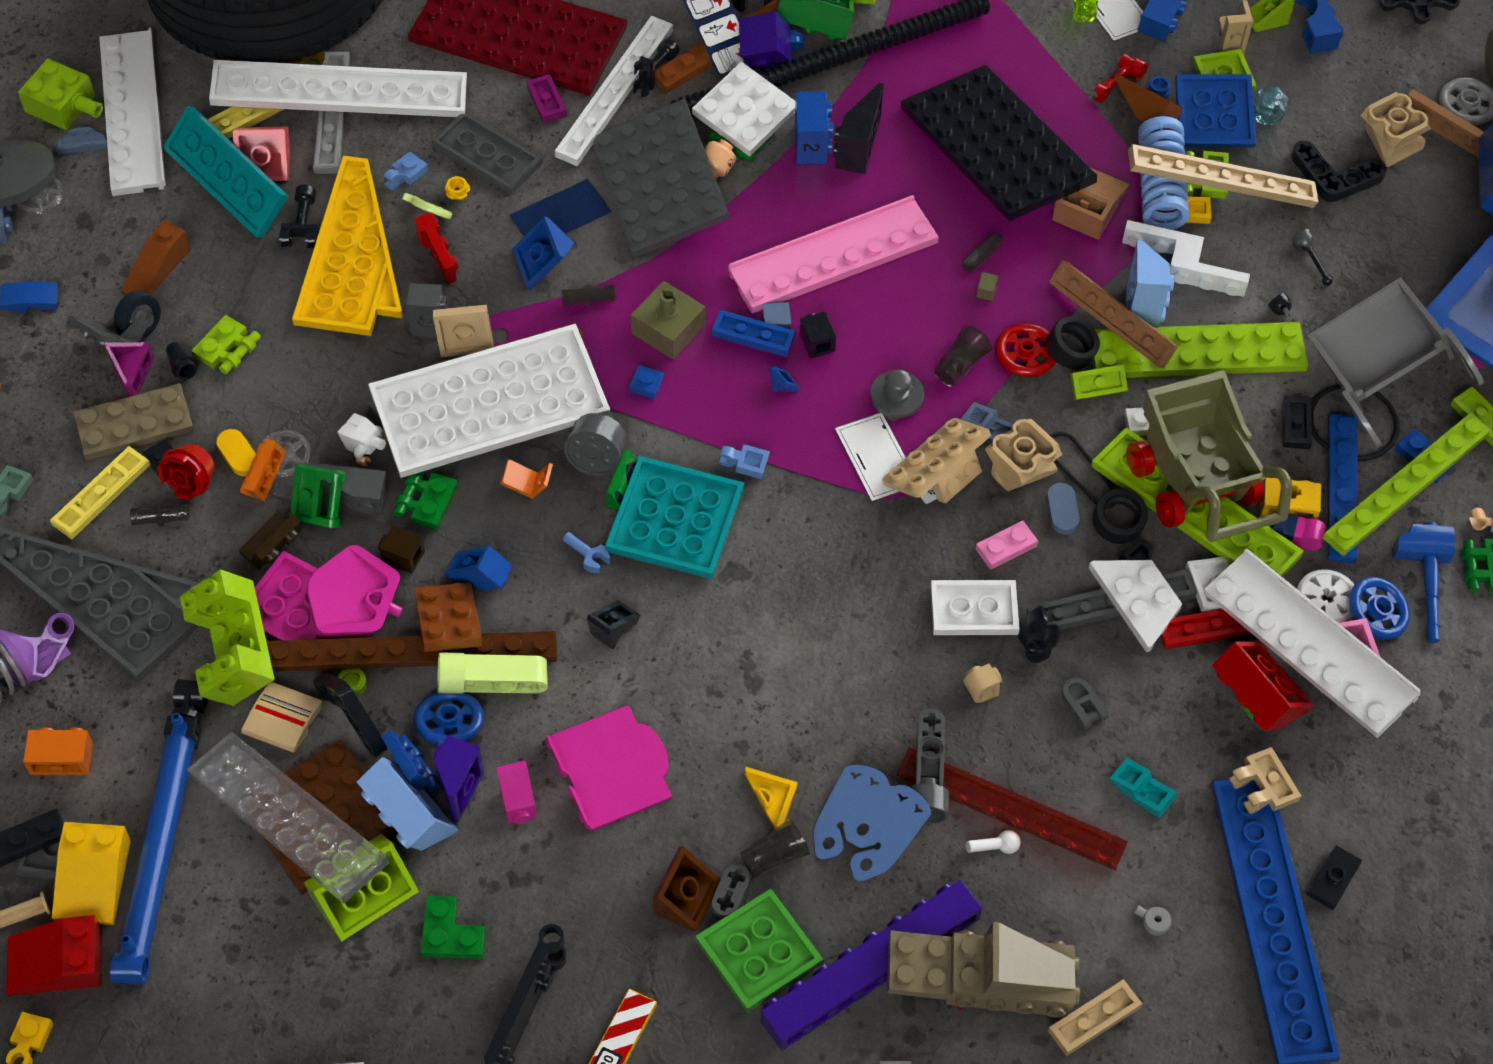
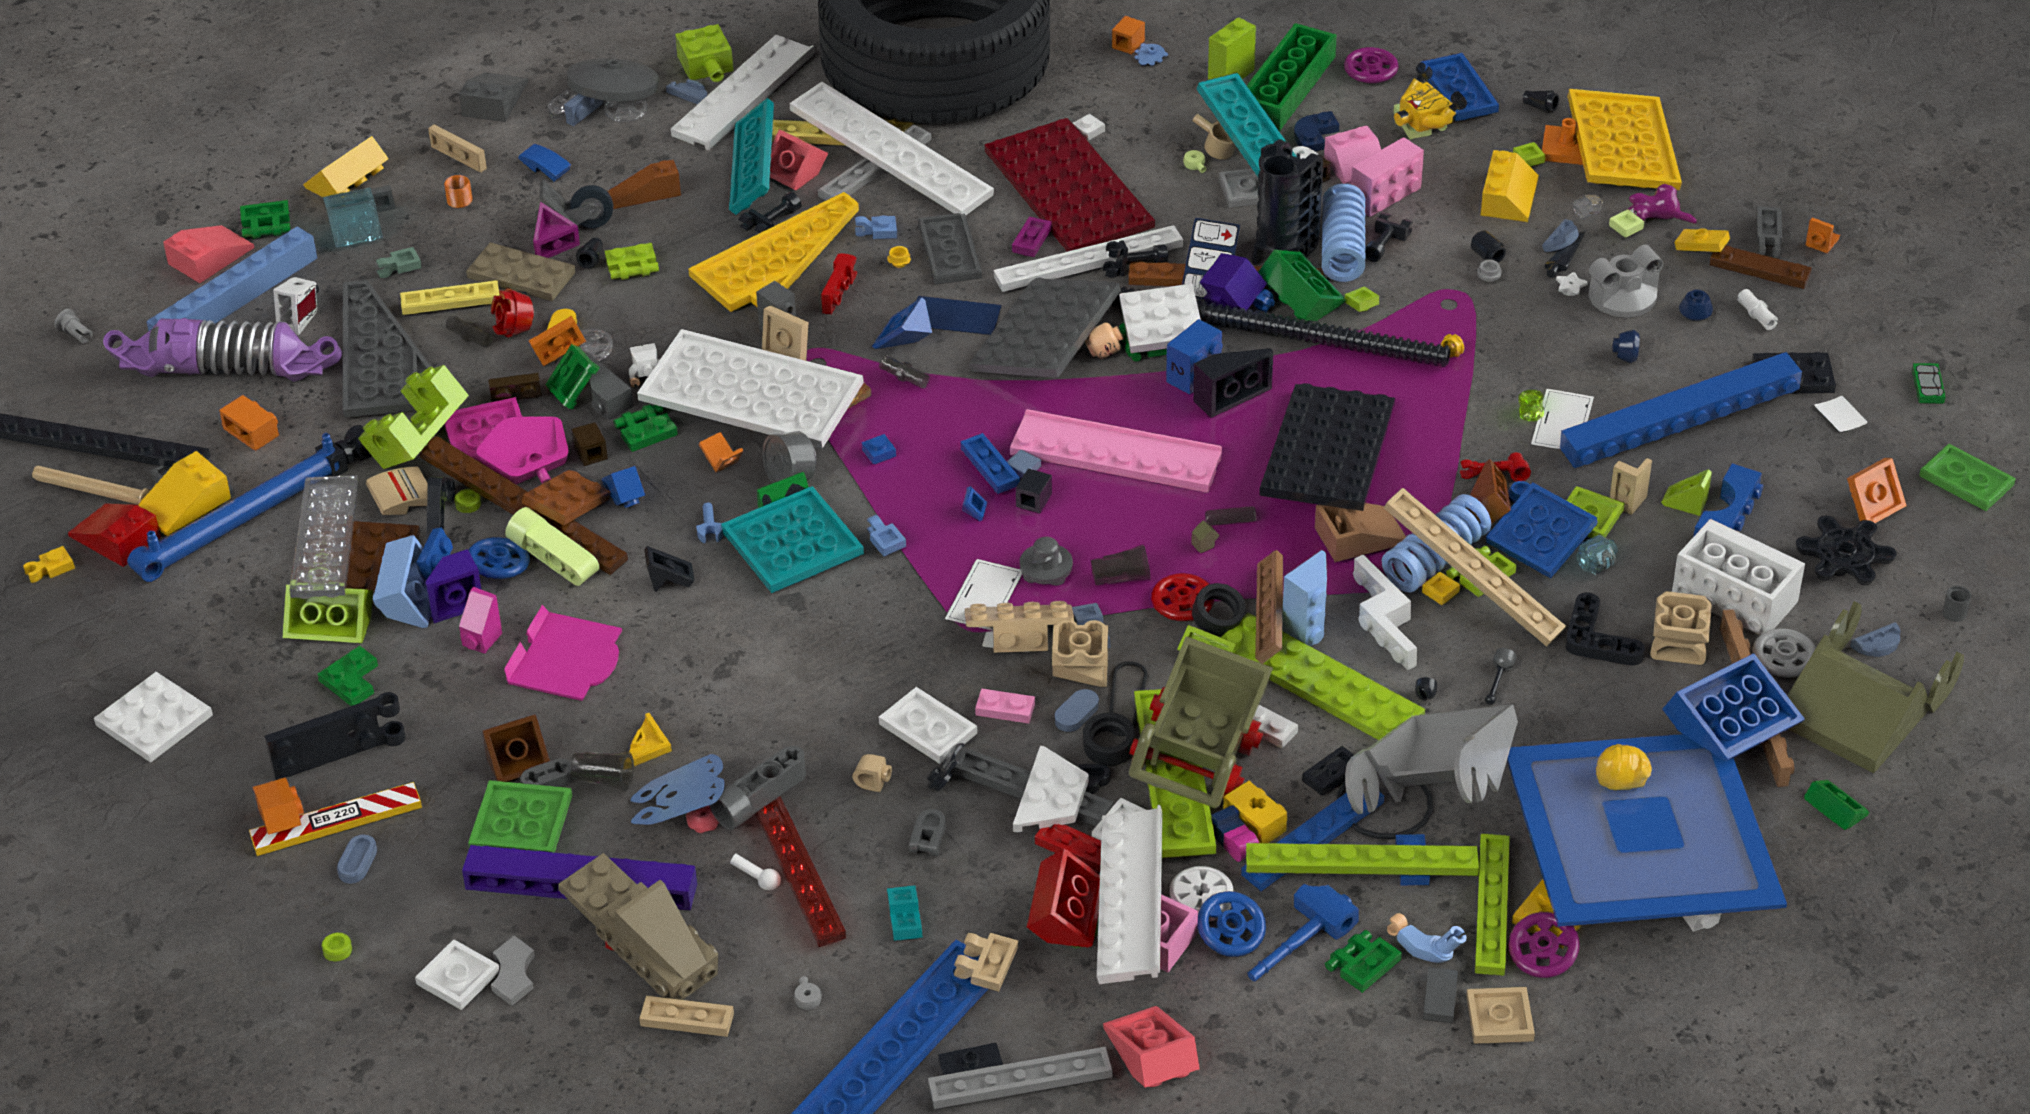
camera: 45 degrees right, 15 degrees down
(427, 206) = (859, 250): yellowish green piece -> none
(668, 320) = (937, 416): olive brick -> none
(1384, 862) = (1019, 1077): none -> light grey plate
(1387, 58) = (1739, 576): none -> white brick
(1441, 754) = (1153, 1046): none -> coral slope

